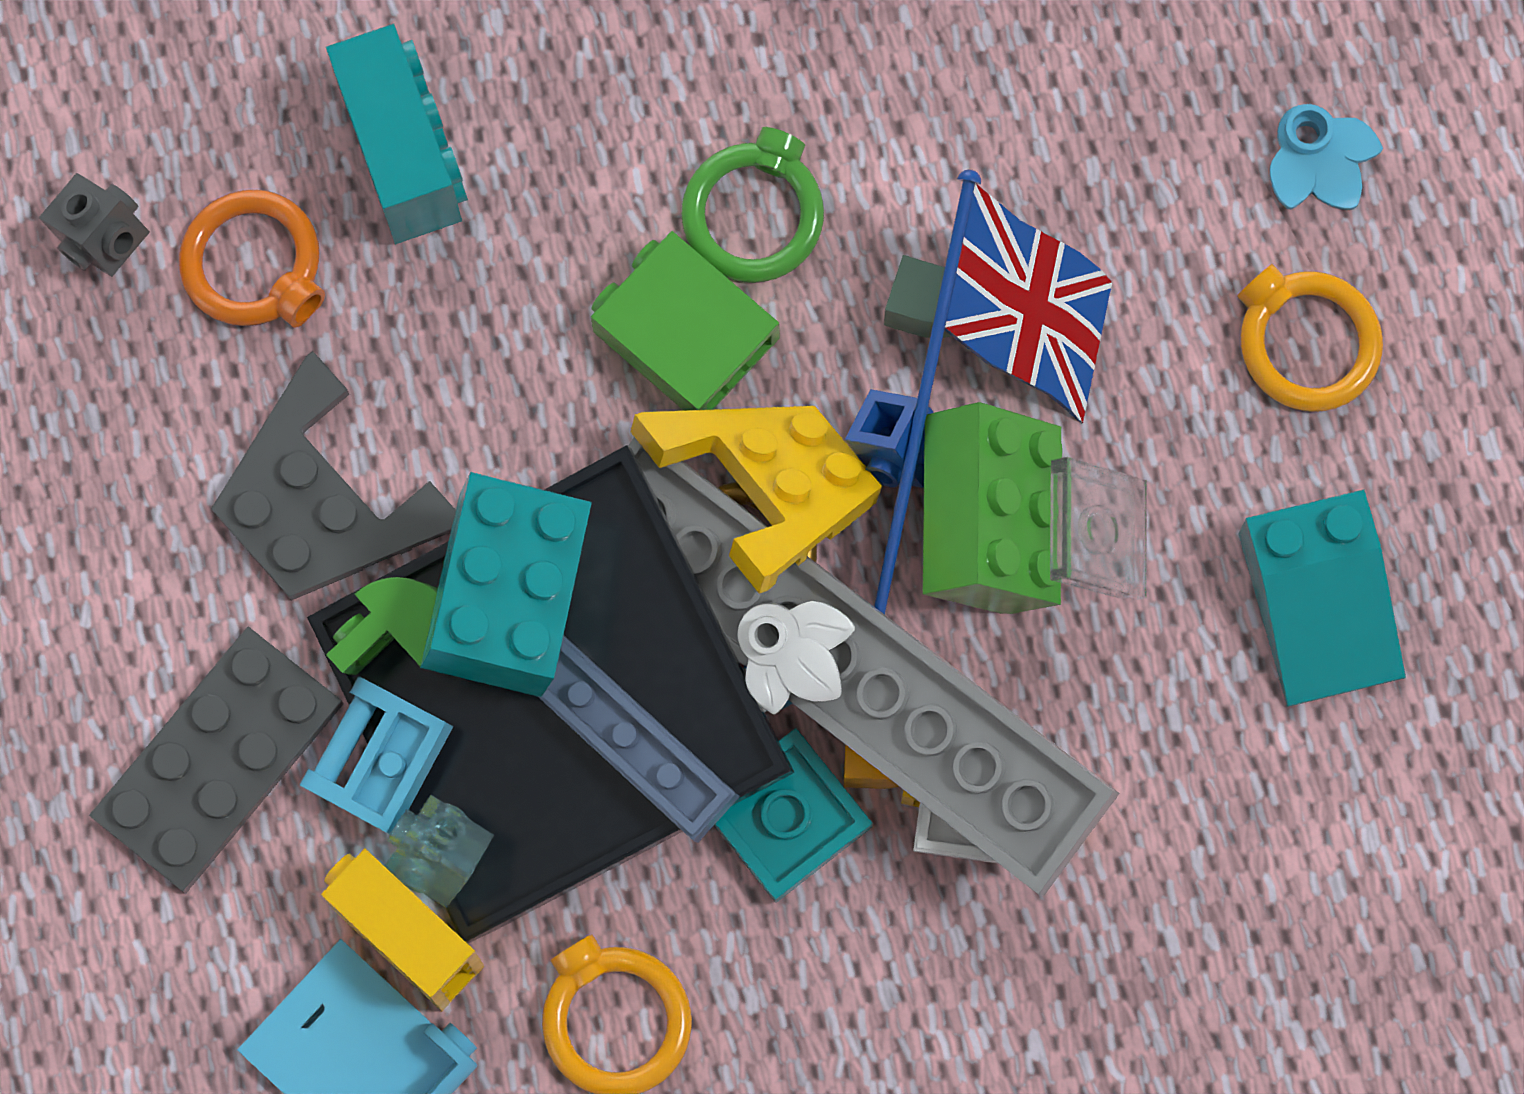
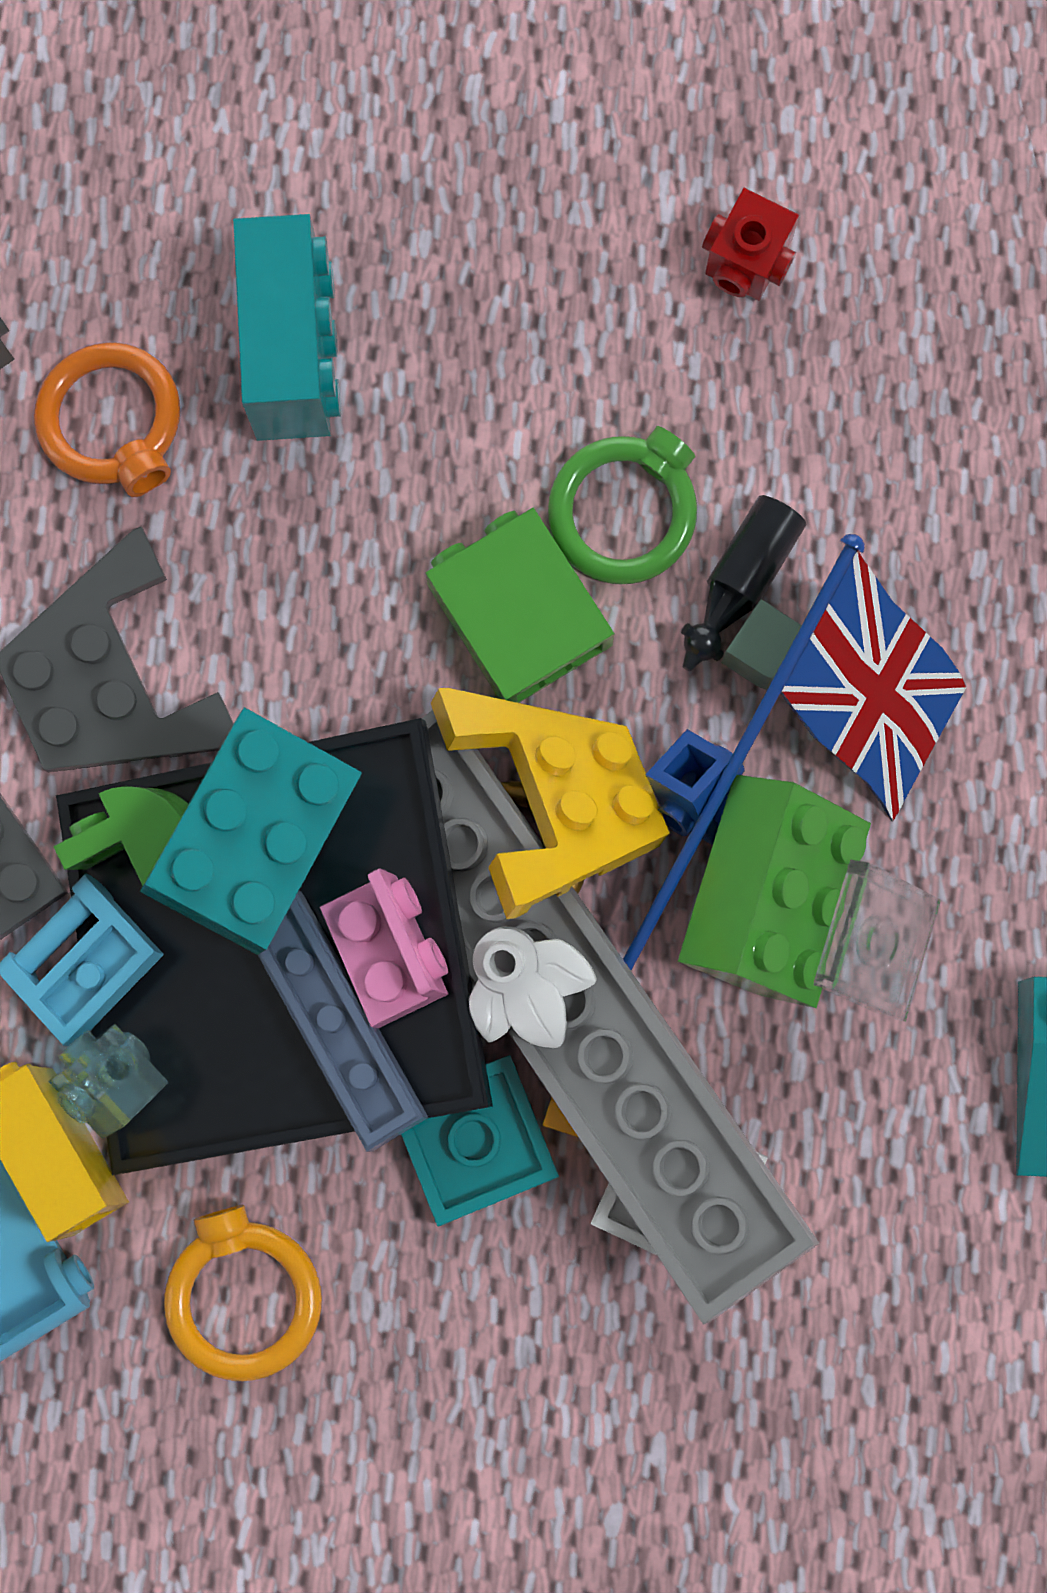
camera: 15 degrees right, 5 degrees up
(656, 658) = (385, 948): none -> bright pink bracket
(880, 239) = (743, 575): none -> black wheel

